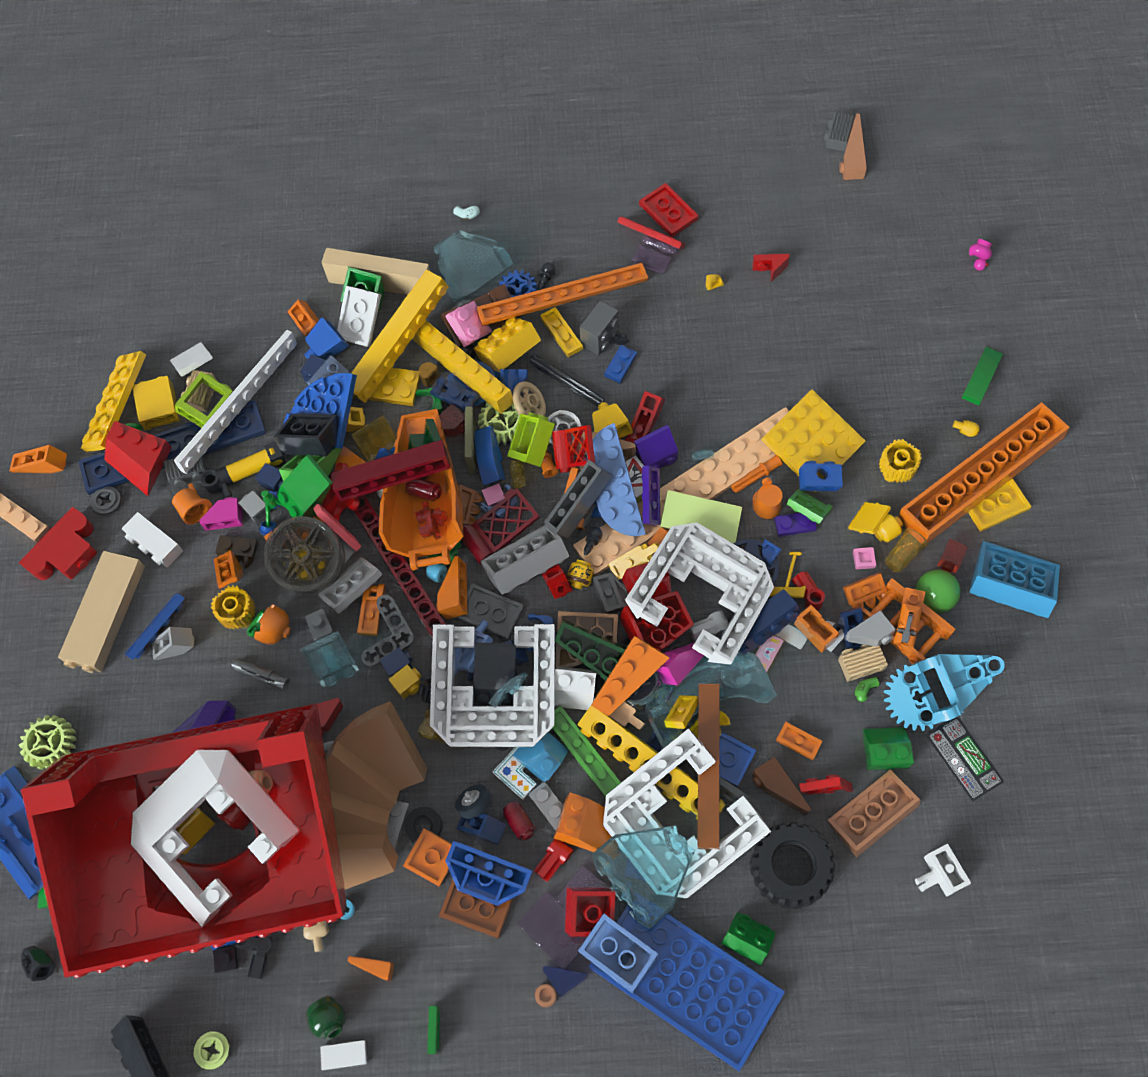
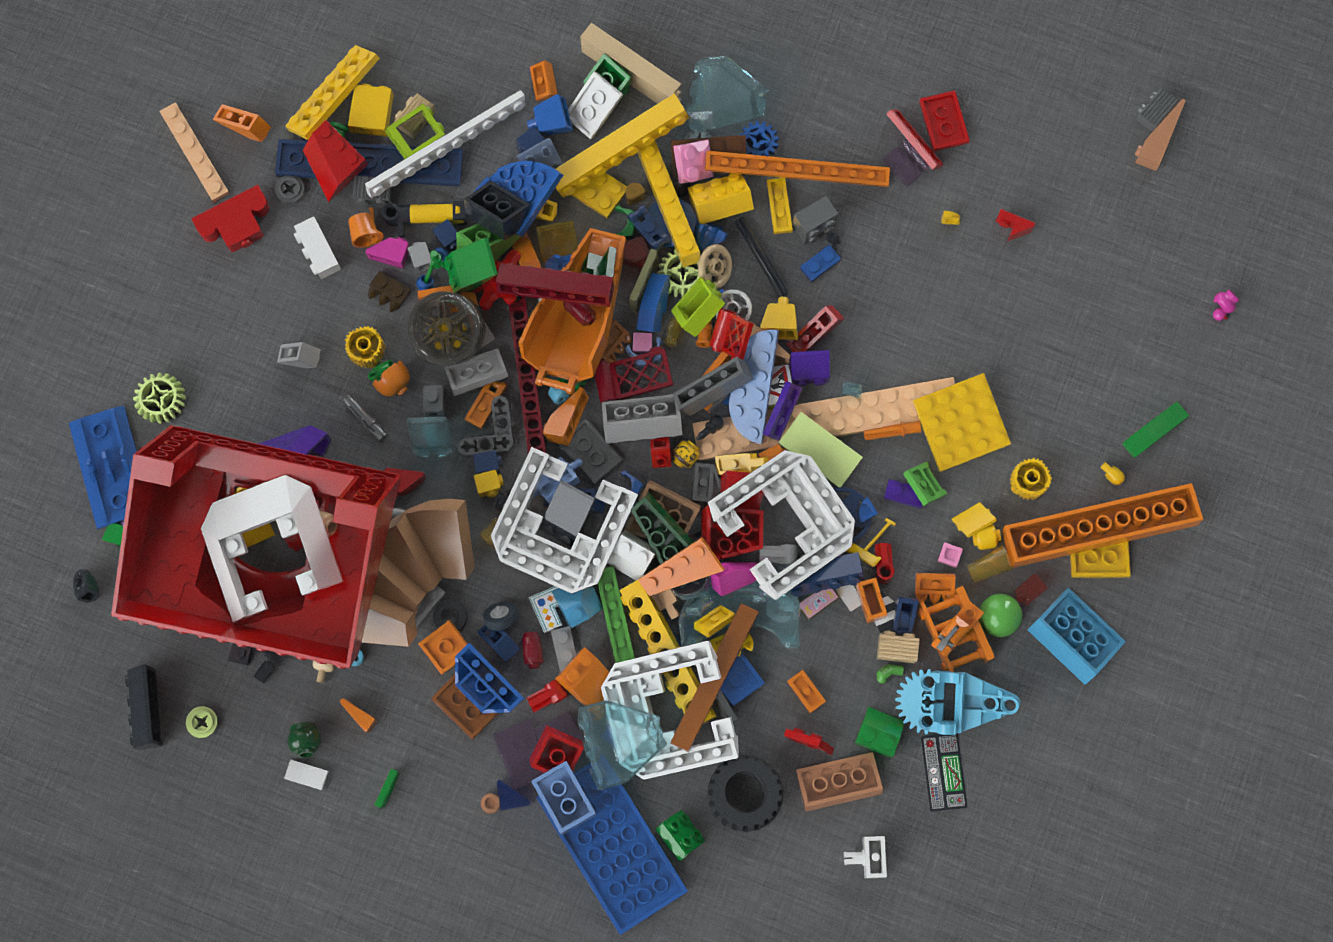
camera: 20 degrees right, 10 degrees up
(101, 612) = (248, 297): tan brick -> none
(149, 633) = (295, 329): blue plate -> none
(191, 359) = (419, 80): white tile -> none
(227, 569) = (373, 310): orange slope -> none
(337, 527) = (486, 313): coral tile -> none
(432, 518) = (575, 345): clear red hips -> none
(467, 213) = (746, 37): light aqua arm -> none
(511, 686) = (574, 533): clear light blue slope -> none
(548, 270) = (796, 134): black bar -> none
(767, 500) = (889, 461): orange hat -> none
(778, 785) = (767, 718): reddish brown slope -> none
(811, 482) = (936, 457): blue brick -> none
(872, 631) = (917, 626): light grey slope -> none

